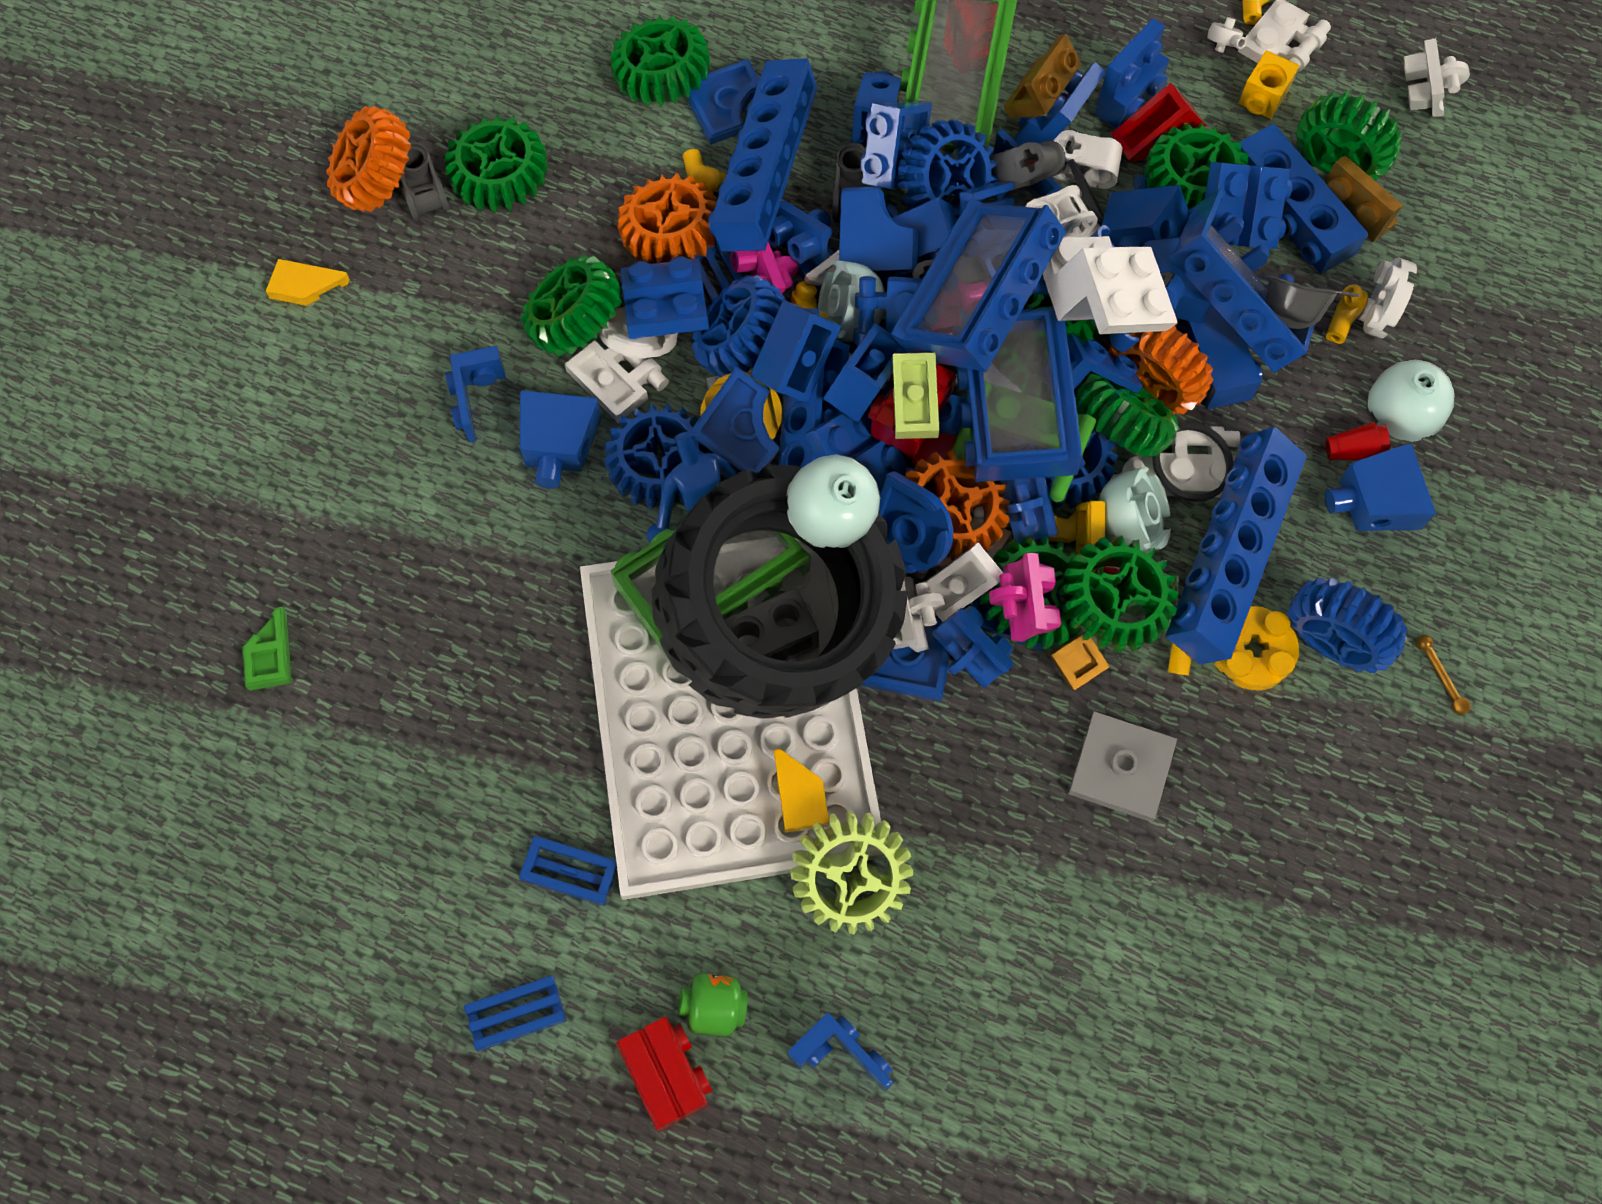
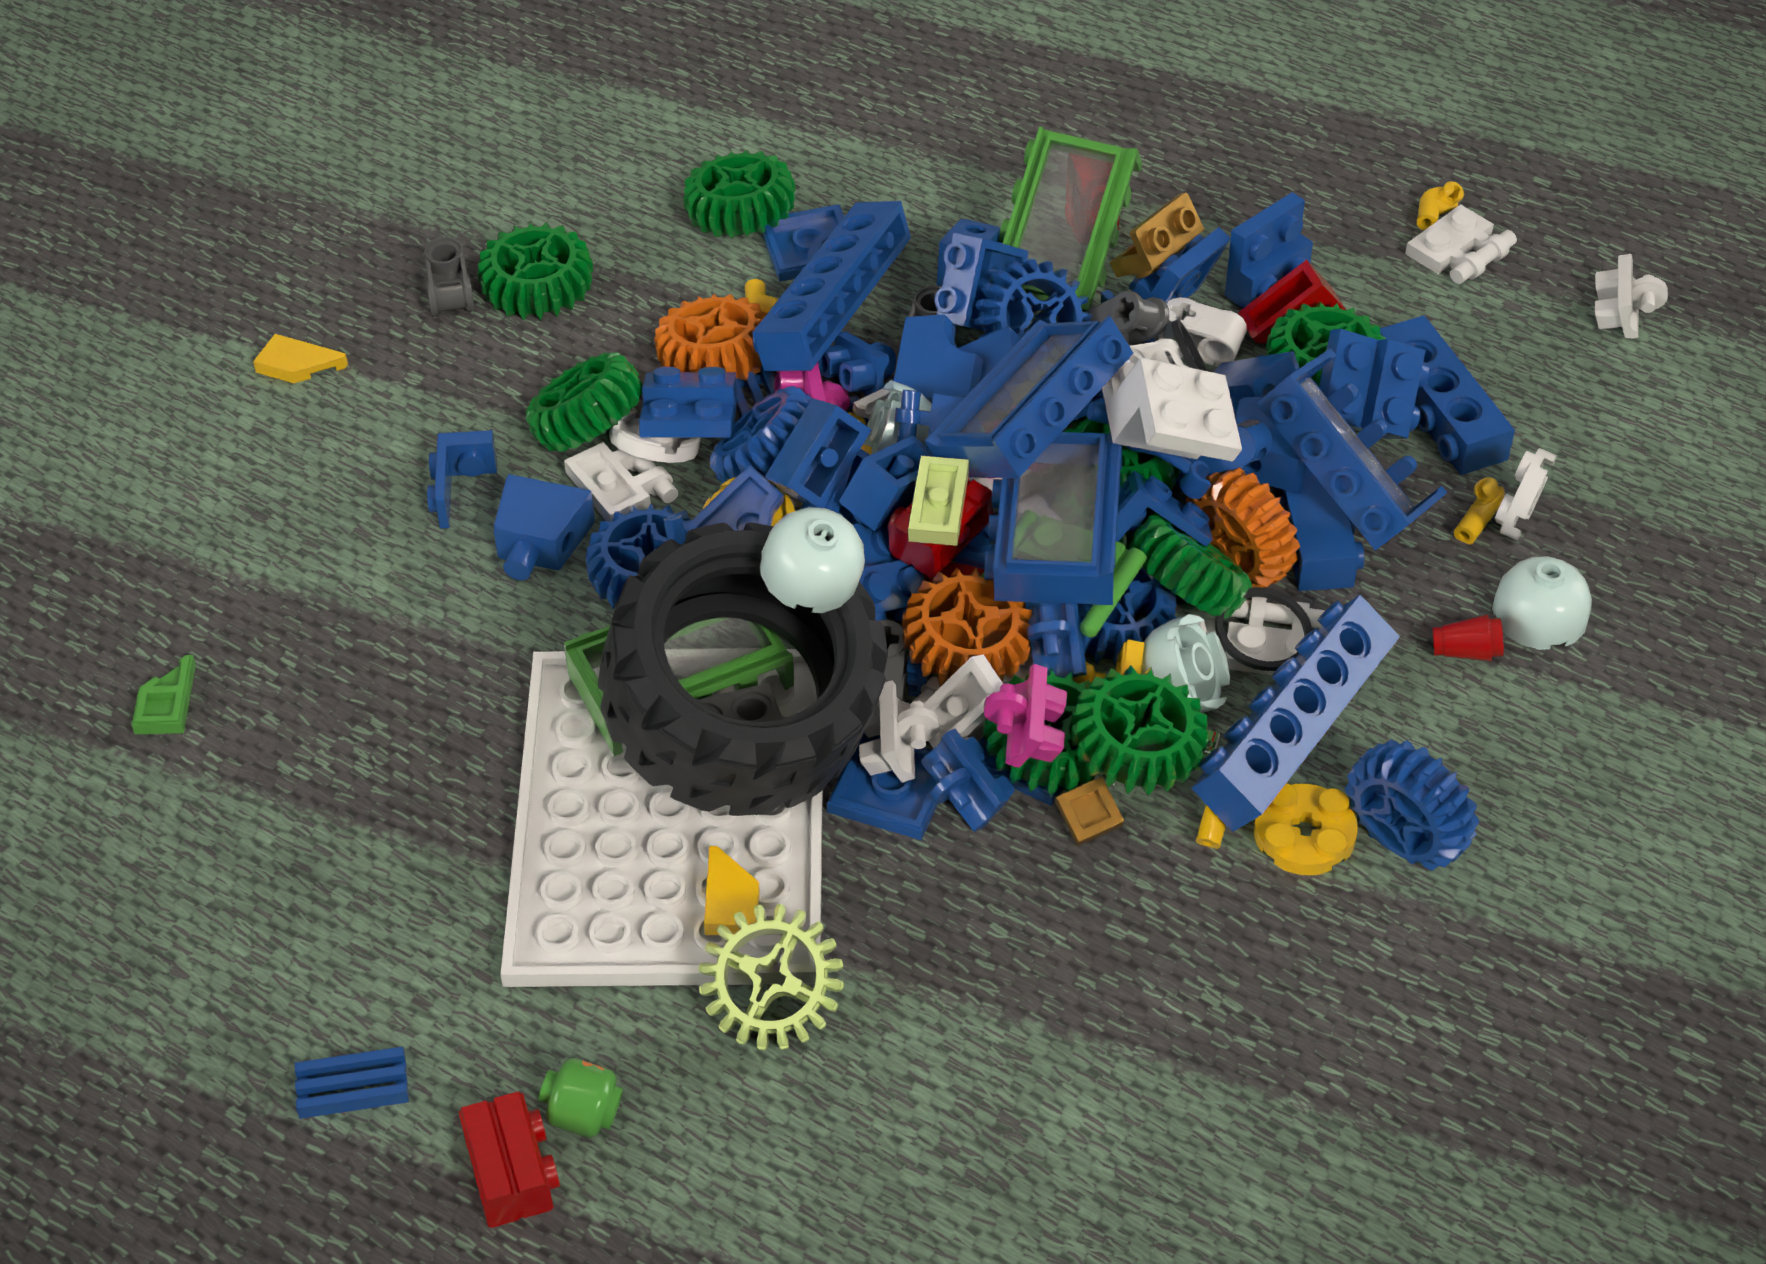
camera: 10 degrees right, 20 degrees down
(368, 159) = (395, 246): orange gear -> none
(573, 853) = (442, 967): blue tile -> none
(815, 1047) = (693, 1149): blue bracket -> none
(916, 522) = (916, 631): blue tile -> none
(1123, 766) = (1121, 928): light grey plate -> none
(1226, 35) = (1390, 233): white piece -> none
(1268, 84) = (1430, 283): yellow brick -> none
(1299, 305) = (1412, 475): dark grey piece -> none
(1348, 127) = (1508, 336): green gear -> none
(1363, 198) = (1517, 398): pearl gold bracket -> none
(1384, 492) = (1488, 688): blue torso -> none
(1460, 704) = (1547, 918): pearl gold hinge -> none

